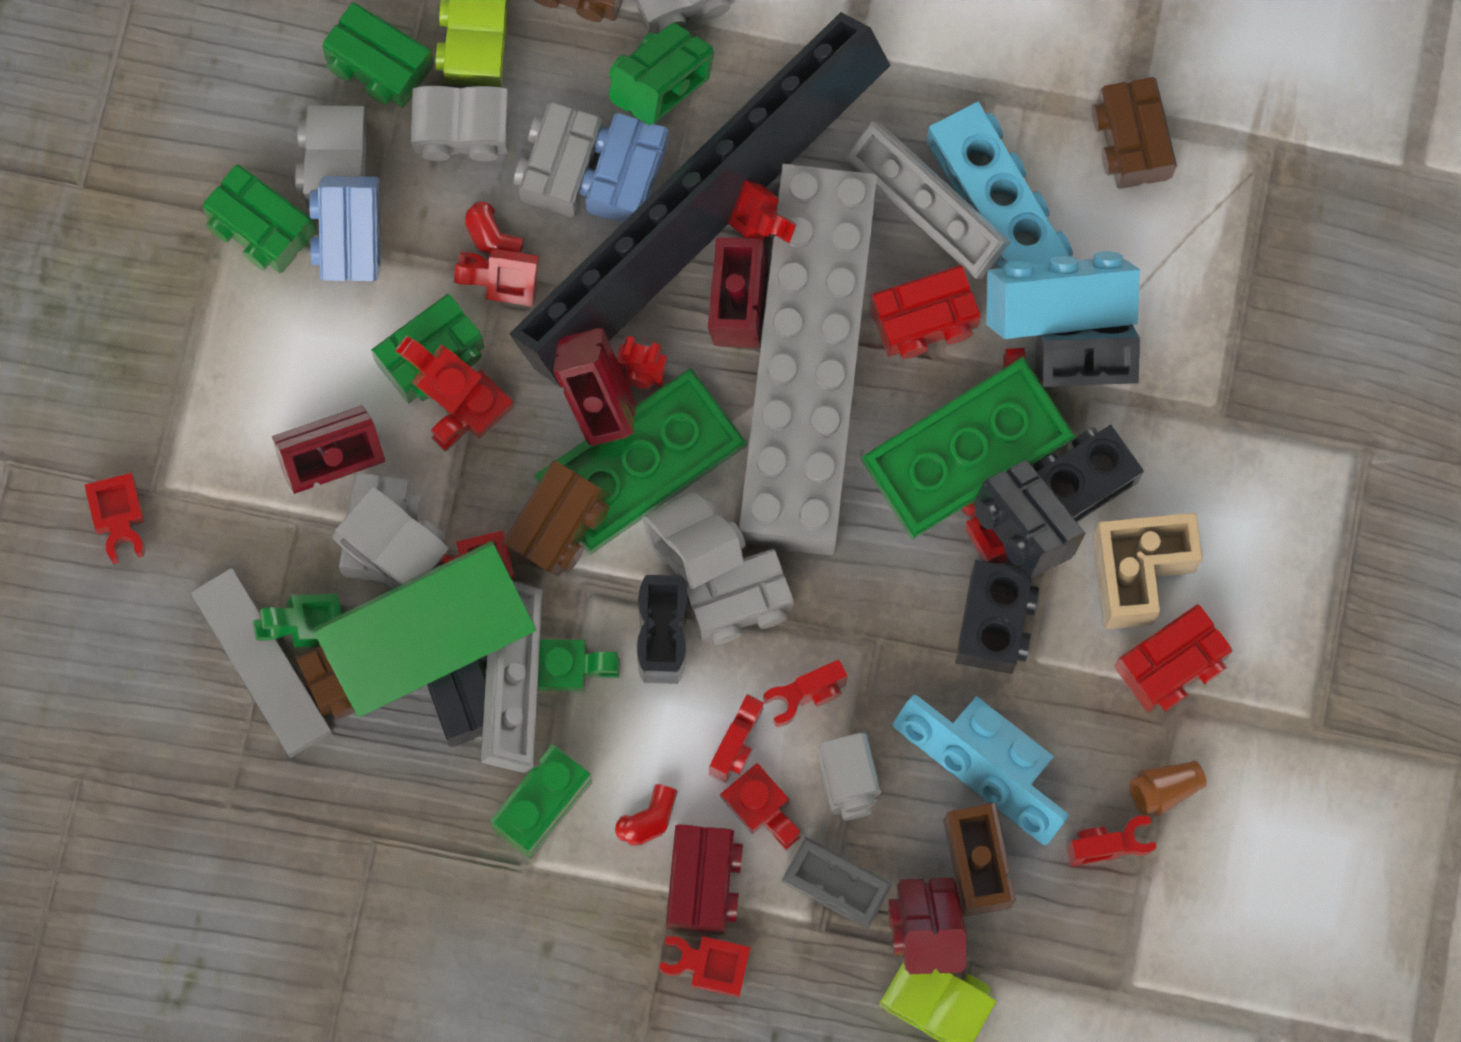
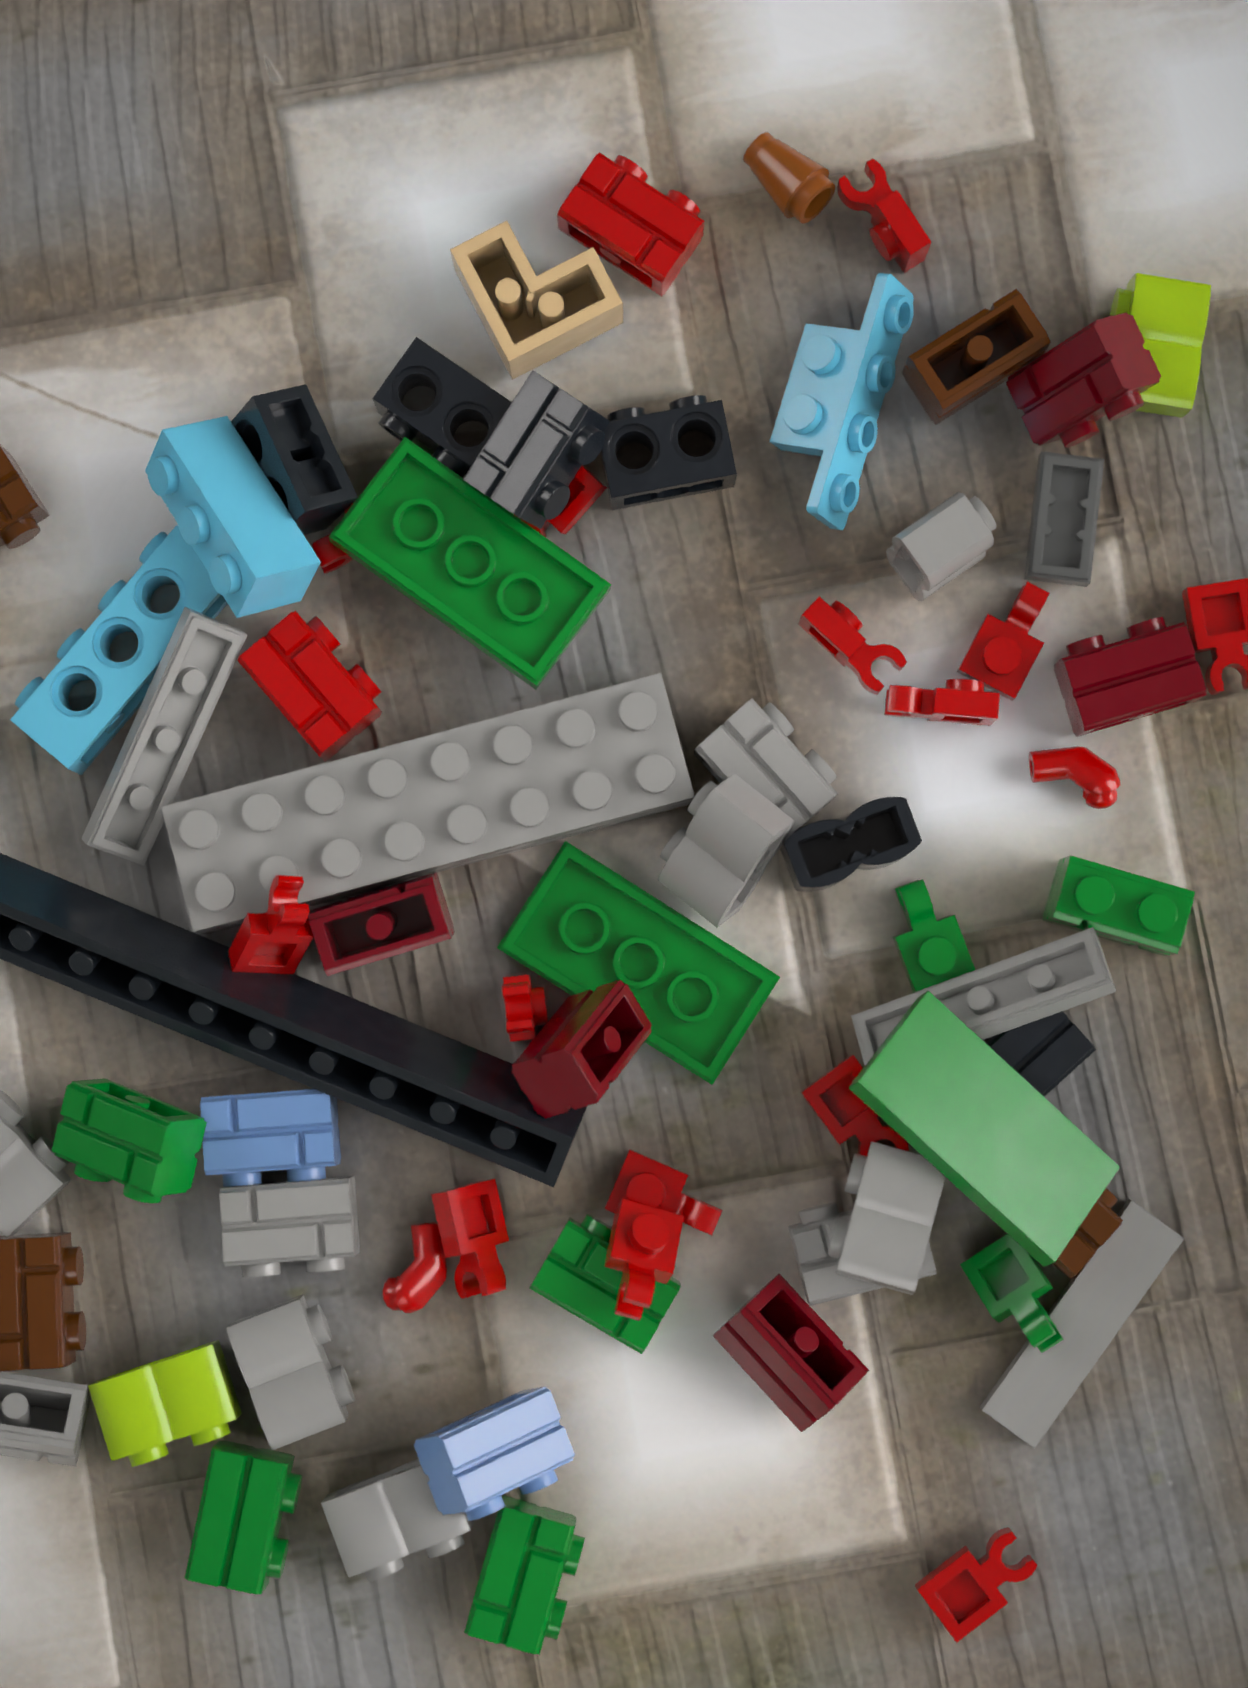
camera: 105 degrees left, 10 degrees up
(558, 519) = (765, 1028): reddish brown brick -> none

